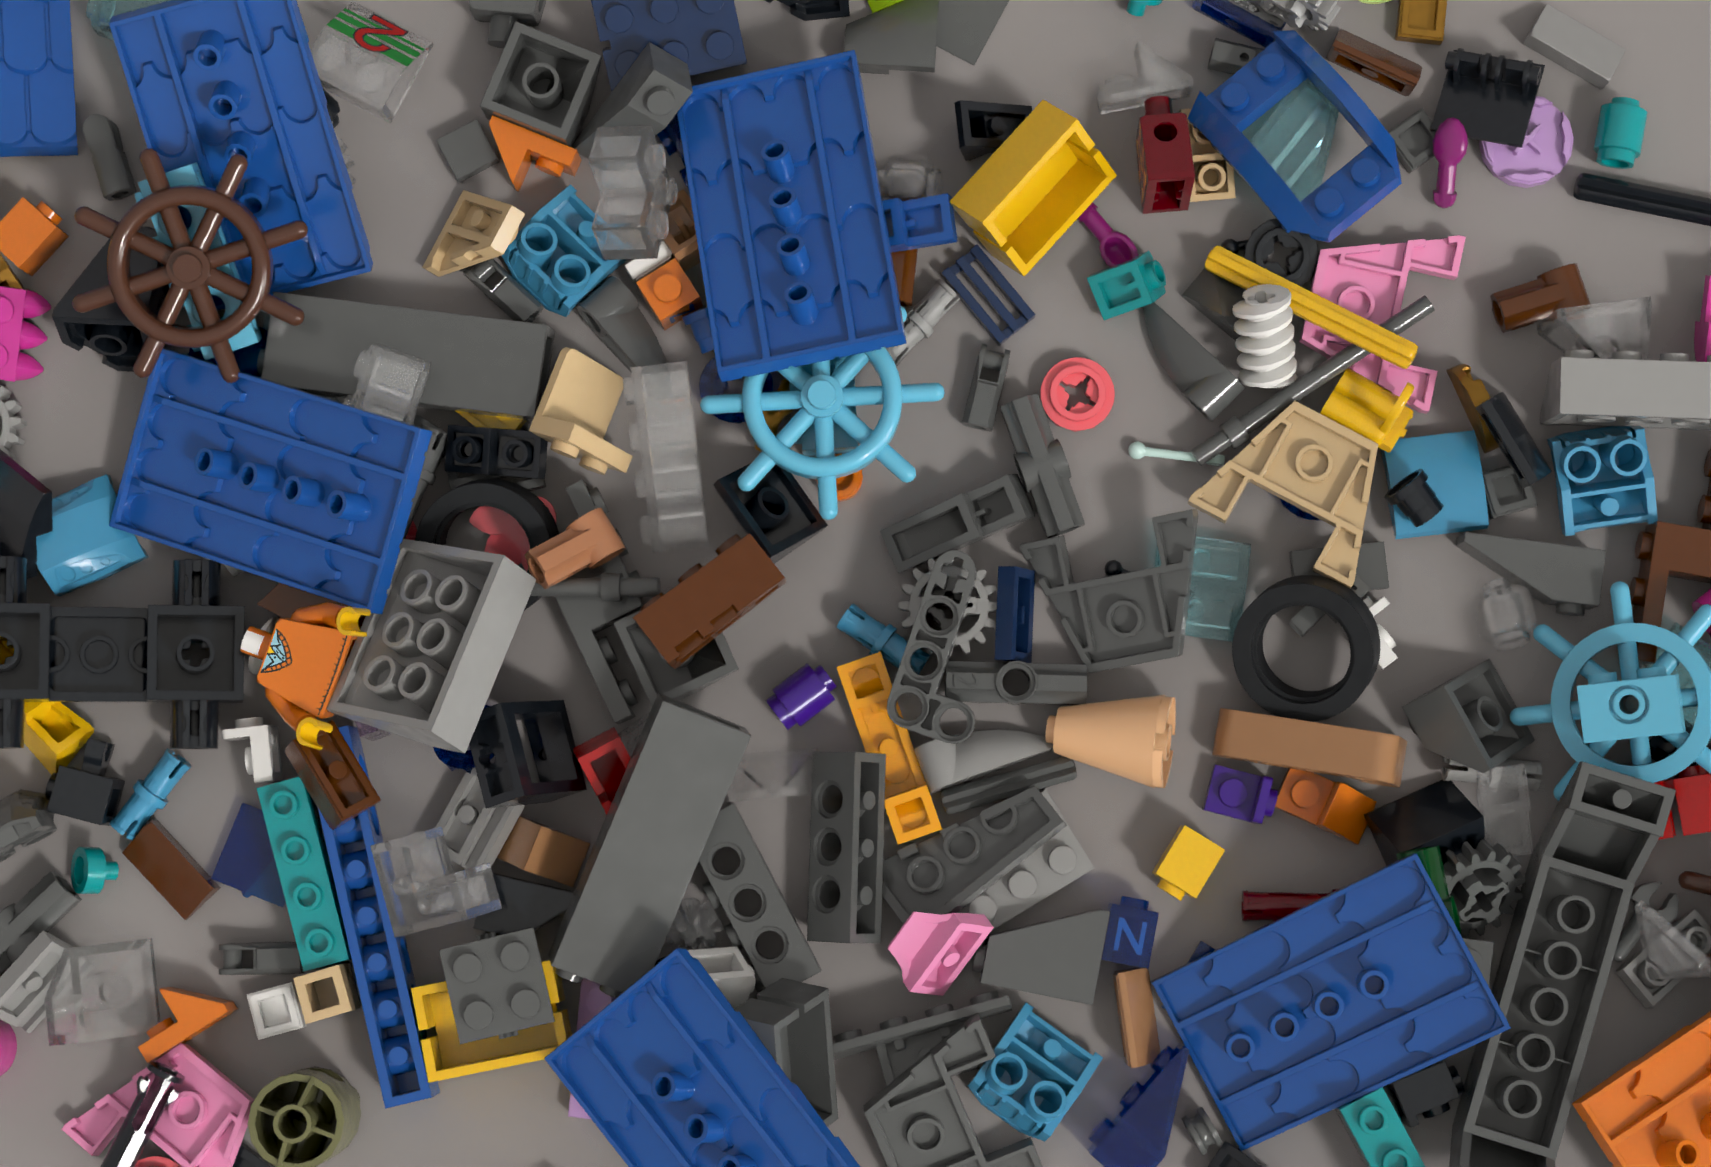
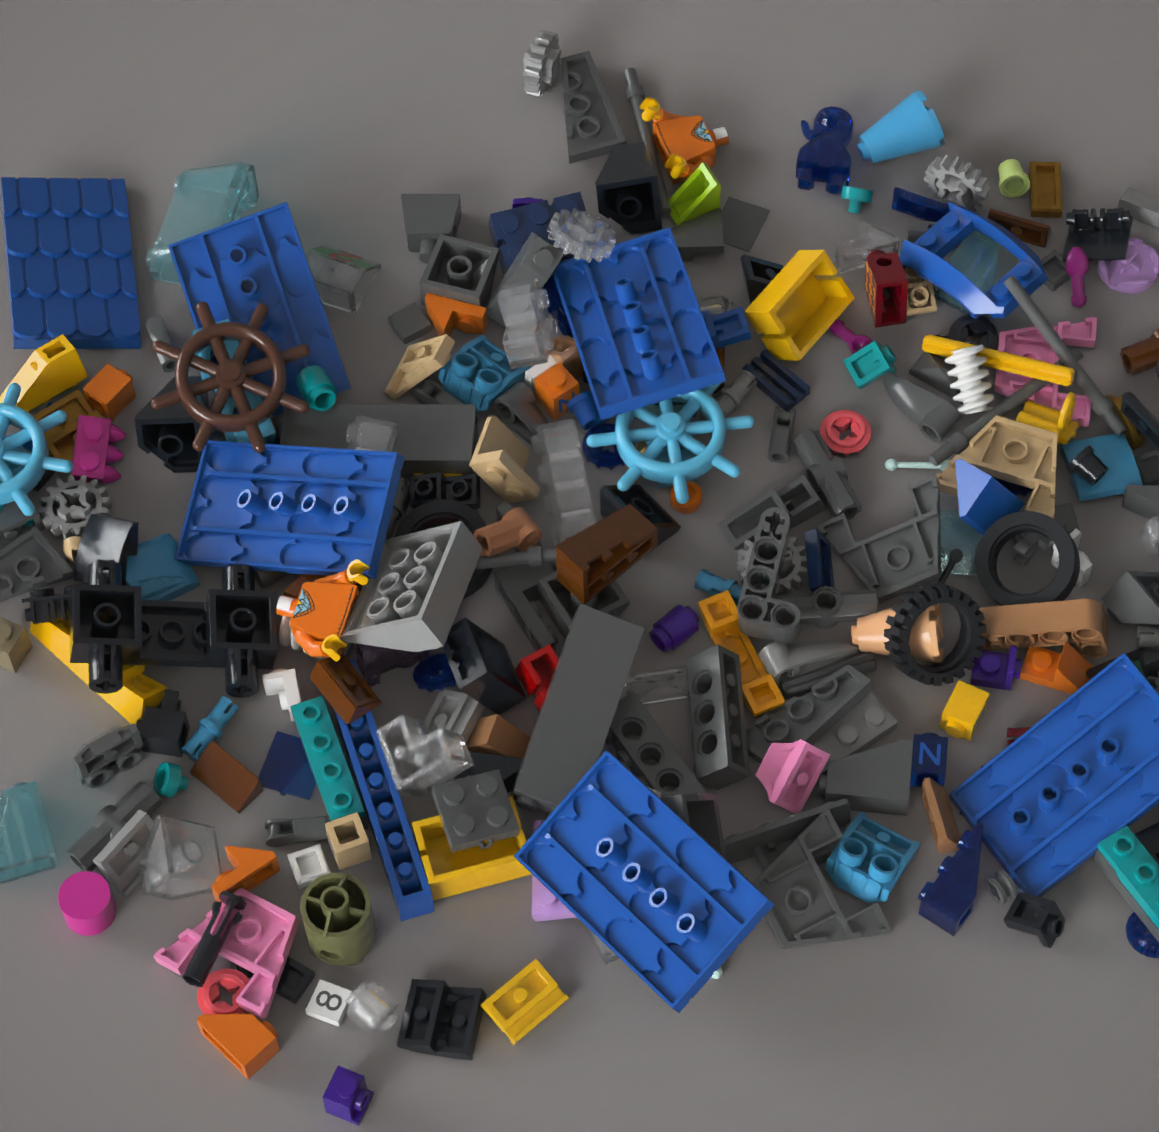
camera: 10 degrees left, 25 degrees down
(319, 278) = (316, 388): none -> teal brick
(720, 60) = (581, 235): none -> clear gear
(1141, 729) = (962, 652): none -> black tyre
(1208, 619) = (955, 557): none -> black hinge
(1258, 539) = (982, 497): none -> blue slope
(1450, 392) = (1101, 405): none -> dark grey bar

